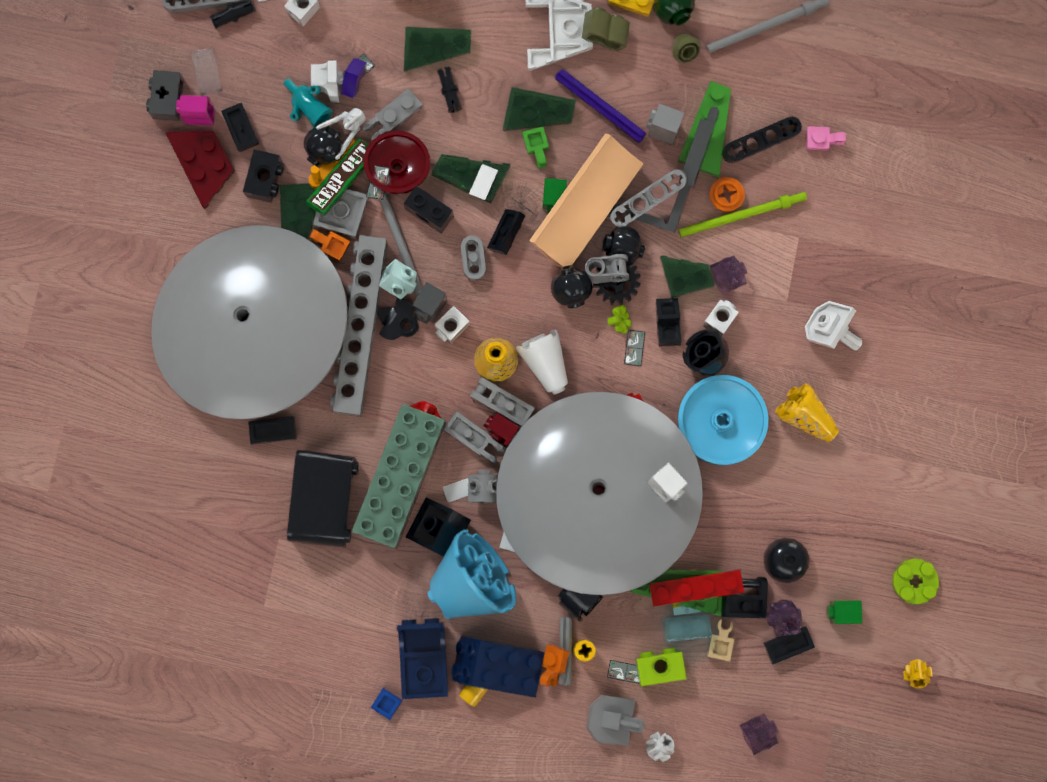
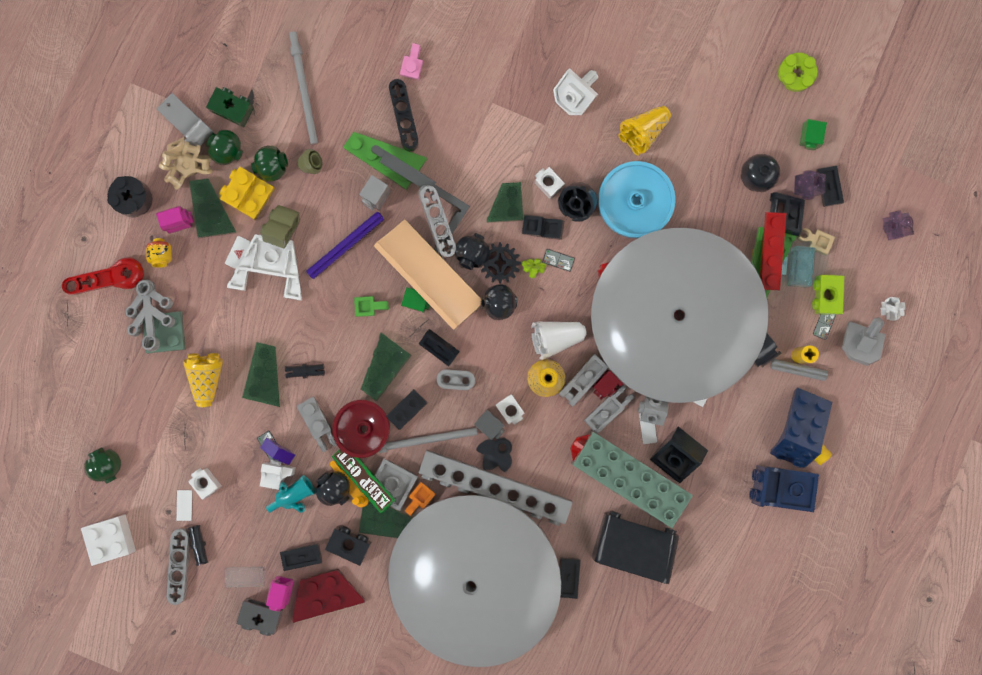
camera: 75 degrees left, 5 degrees up
(351, 121) = (316, 460): white plant -> none
(373, 192) = (368, 442): light grey sticker -> none
(386, 703) = (813, 525): blue tile -> none
(398, 279) = (463, 447): light aqua brick -> none
(471, 579) = (731, 434): medium azure cone -> none
(483, 182) = (392, 358): white sticker -> none
(536, 109) = (338, 300): clear green wing -> none
(555, 661) = (807, 379): orange plate -> none
(609, 268) = (492, 266): light grey piece -> none
(667, 483) = (689, 256): white brick -> none
(728, 274) = (514, 168): clear purple brick -> none
(731, 185) = (450, 148): orange gear -> none
(783, 202) = (460, 109): lime bar -> none
(917, 673) = (874, 87): yellow gear -> none

